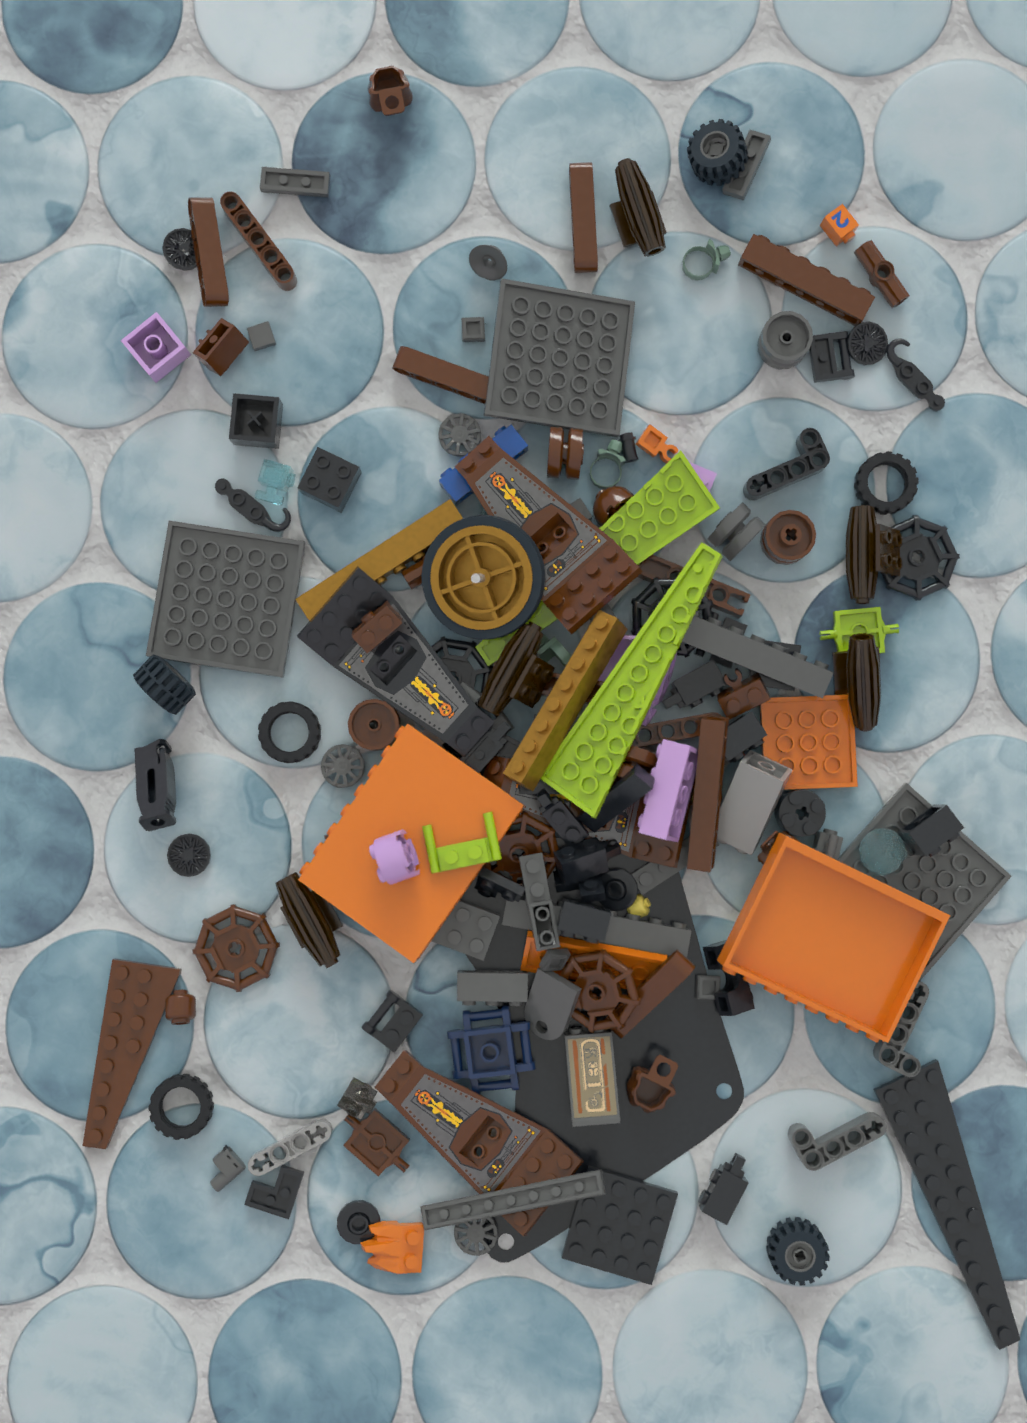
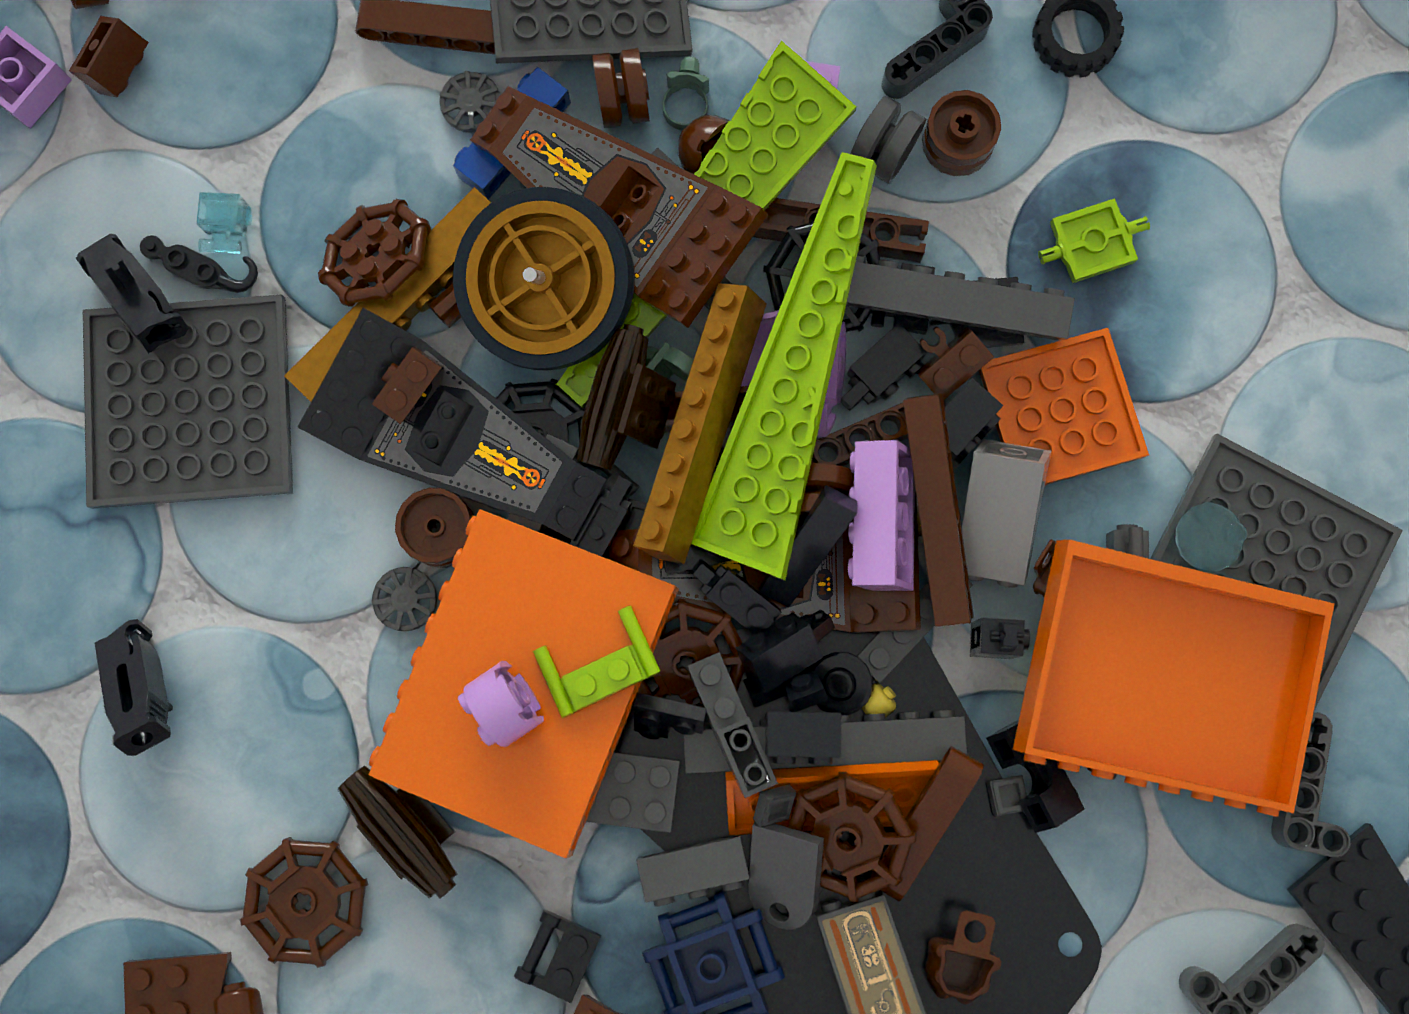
camera: 10 degrees left, 5 degrees down
(164, 684) = (118, 539): black wheel -> none
(188, 855) = (207, 780): black wheel -> none
(204, 518) = (131, 292): none -> black piece
(256, 421) = (178, 144): black brick -> none
(261, 336) = (165, 32): dark grey tile -> none
(265, 732) = (292, 544): black tyre -> none
(329, 479) = (299, 201): black brick -> none
(364, 521) = (389, 267): none -> reddish brown plate
(628, 447) = (709, 64): black pin -> none
(653, 443) = (742, 50): orange plate -> none
(726, 885) = (998, 638): none -> black hinge
(813, 810) = (1090, 496): black brick -> none
(859, 677) = (1113, 299): dark brown plate -> none
(868, 551) = (1079, 126): dark brown plate -> none
(928, 564) = (1144, 140): black plate -> none
(931, 830) = (1273, 488): black brick -> none

